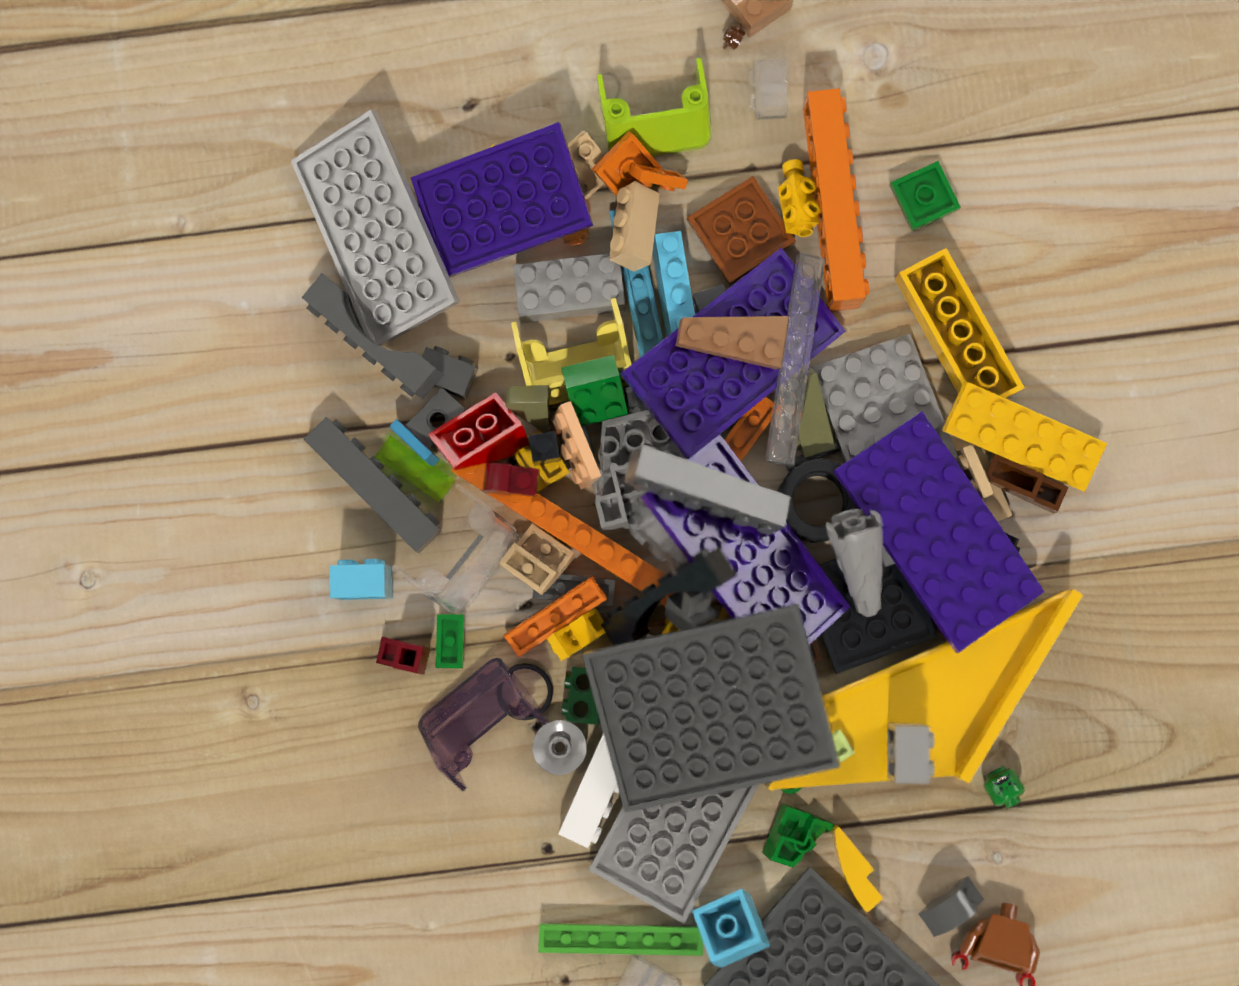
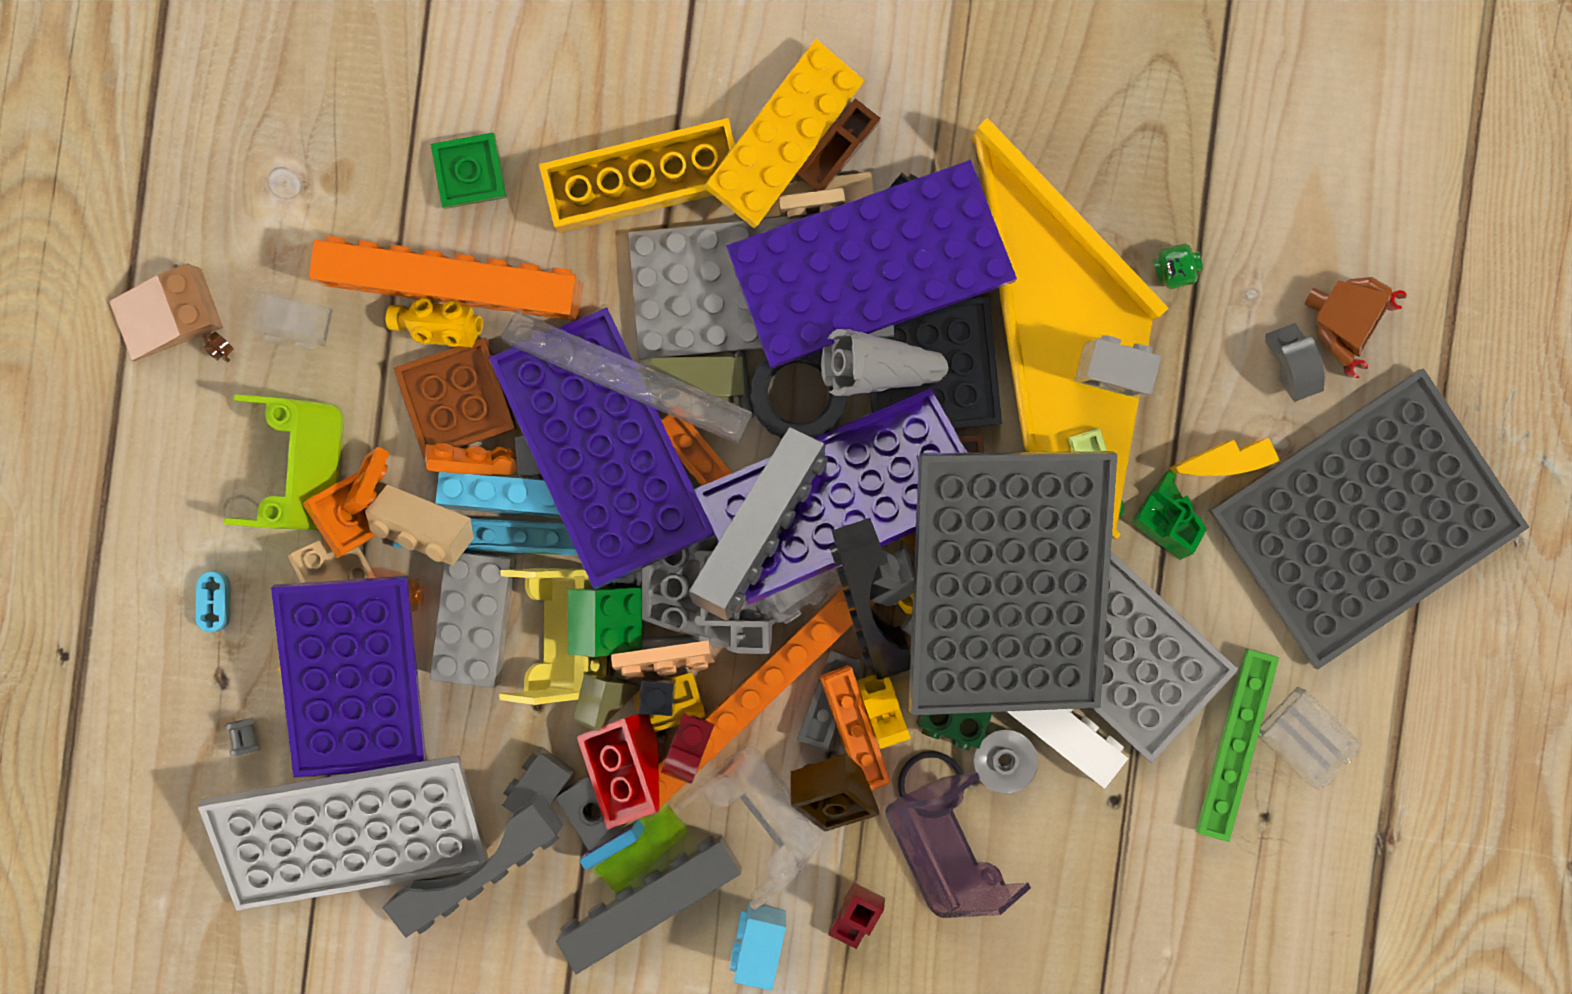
camera: 85 degrees left, 5 degrees up
(423, 131) = (235, 730): none -> dark grey bush
(450, 641) = (852, 857): green plate -> none
(499, 610) = (833, 793): none -> dark brown slope
(530, 76) = (220, 603): none -> medium azure beam
(537, 559) = (785, 735): tan slope -> none
(695, 254) = (470, 460): none -> orange hinge
(731, 928) = (1259, 619): medium azure brick -> none
(737, 338) = (587, 433): medium nougat wing -> none

